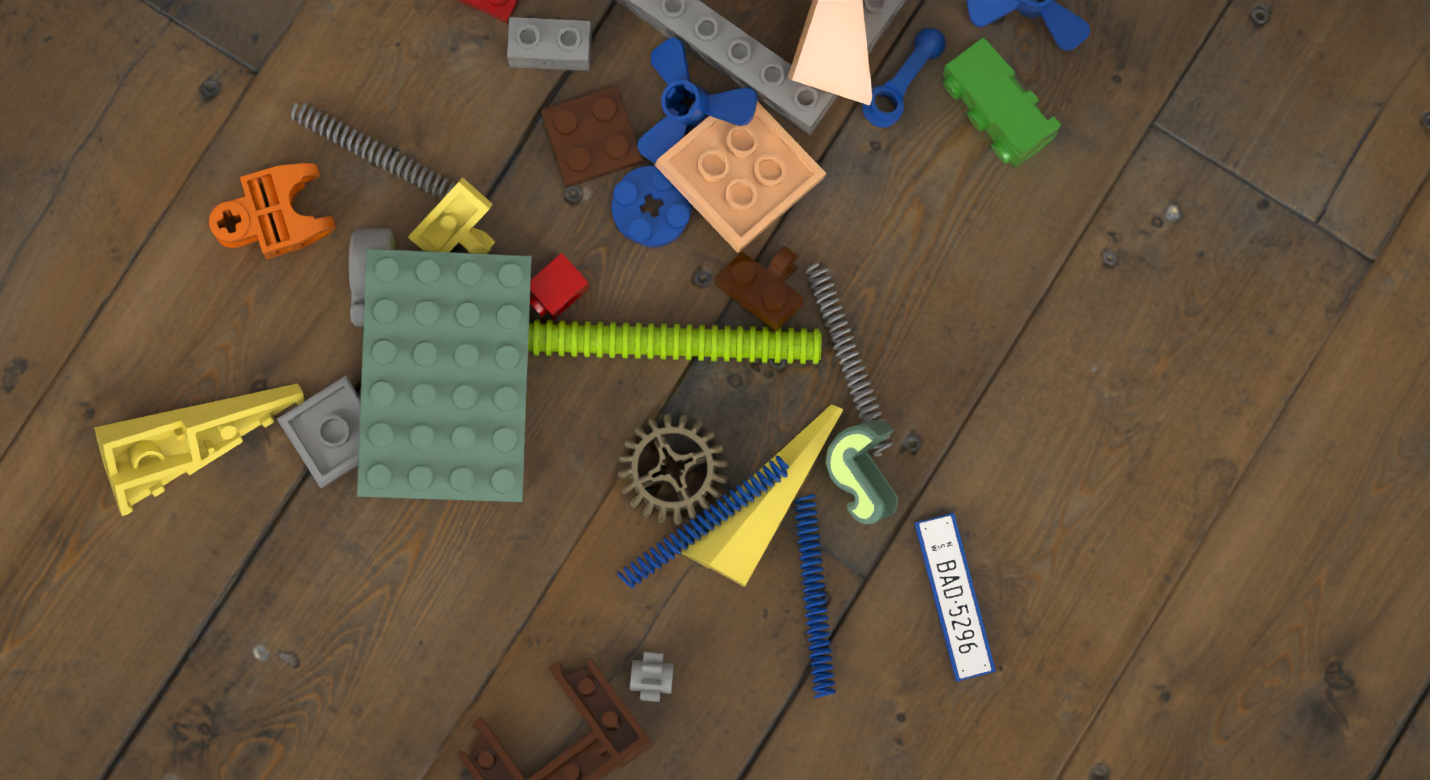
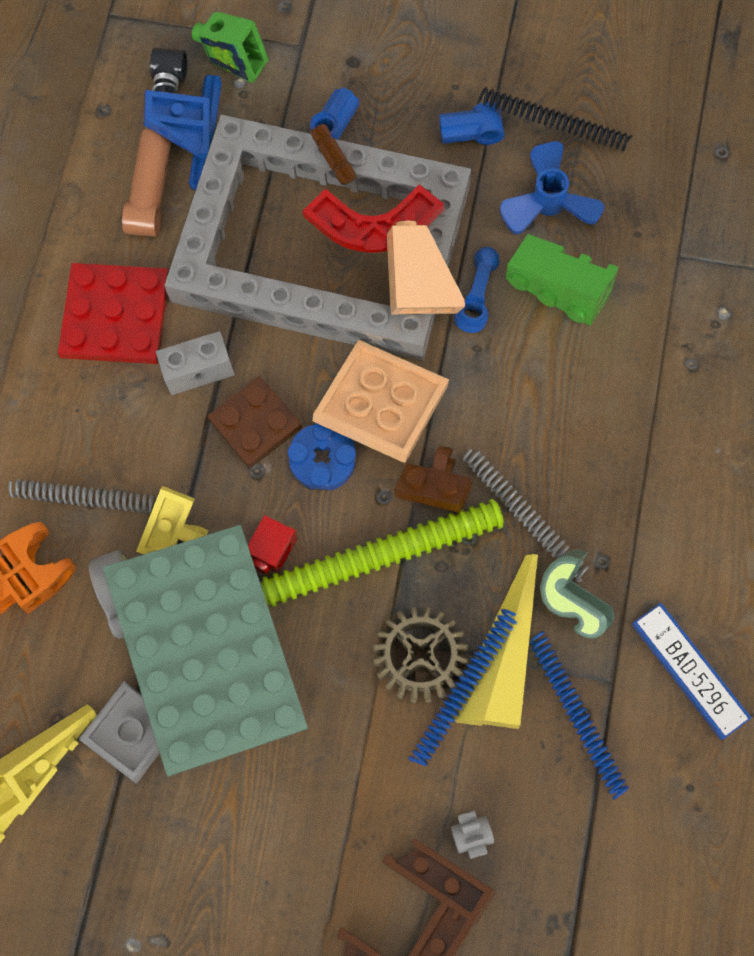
camera: 15 degrees left, 10 degrees down
(730, 106) = (296, 344): blue piece -> none

